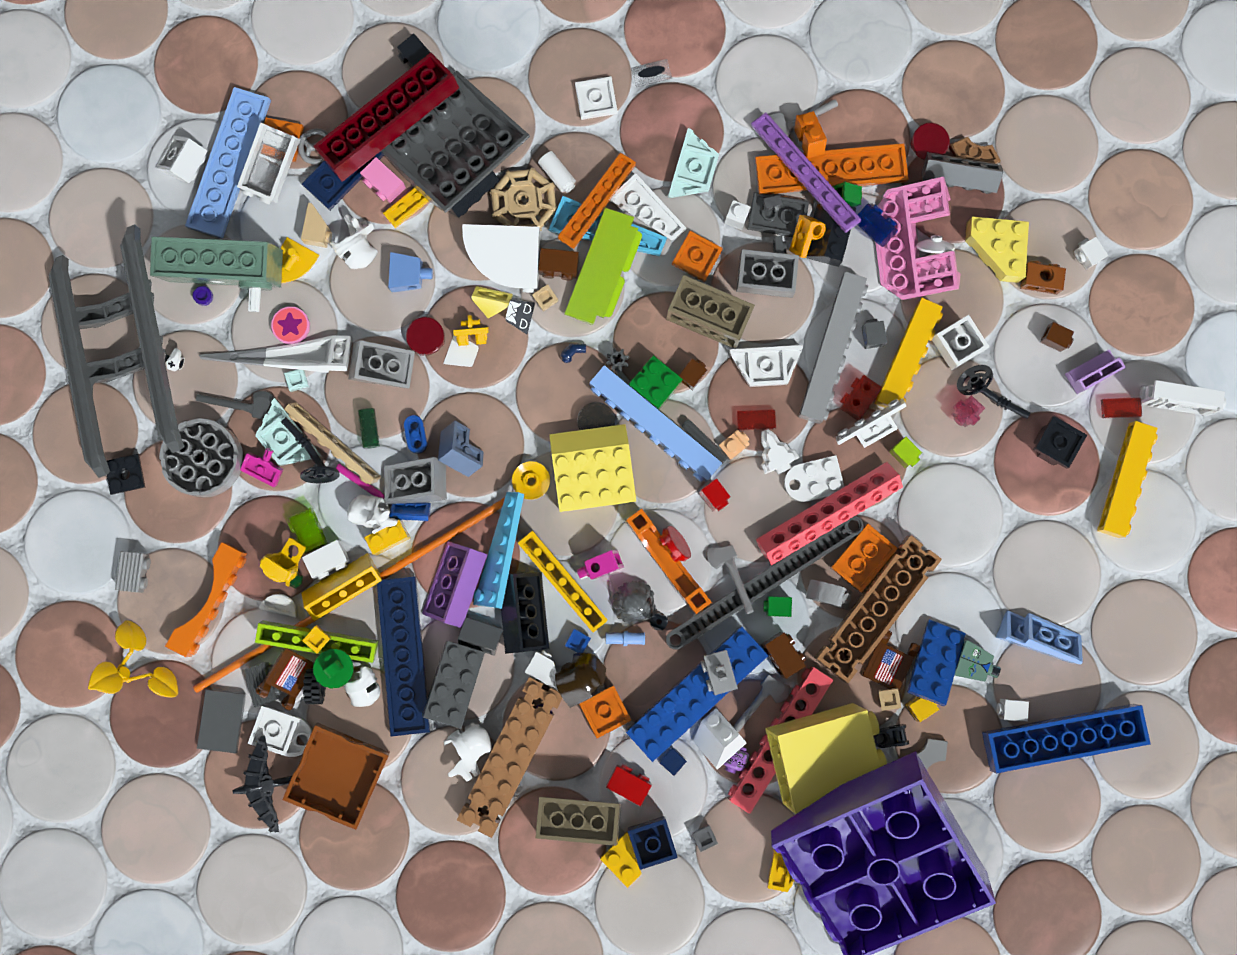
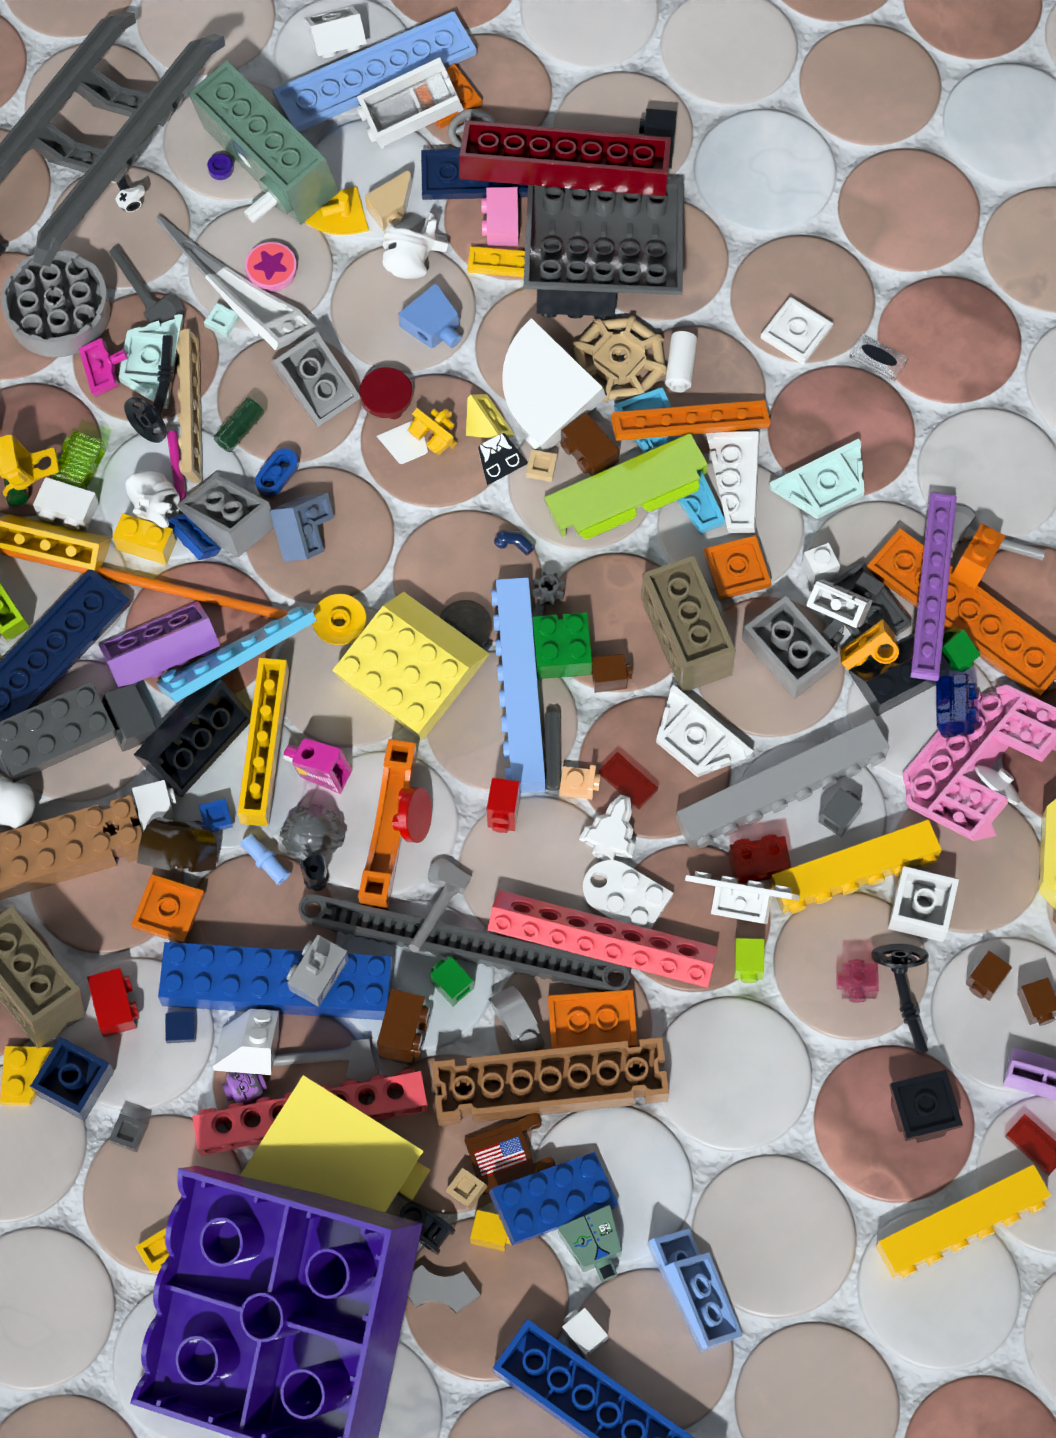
camera: 50 degrees right, 15 degrees down
(770, 227) = (839, 603): none -> white brick
(1022, 348) = (988, 976): none -> reddish brown brick

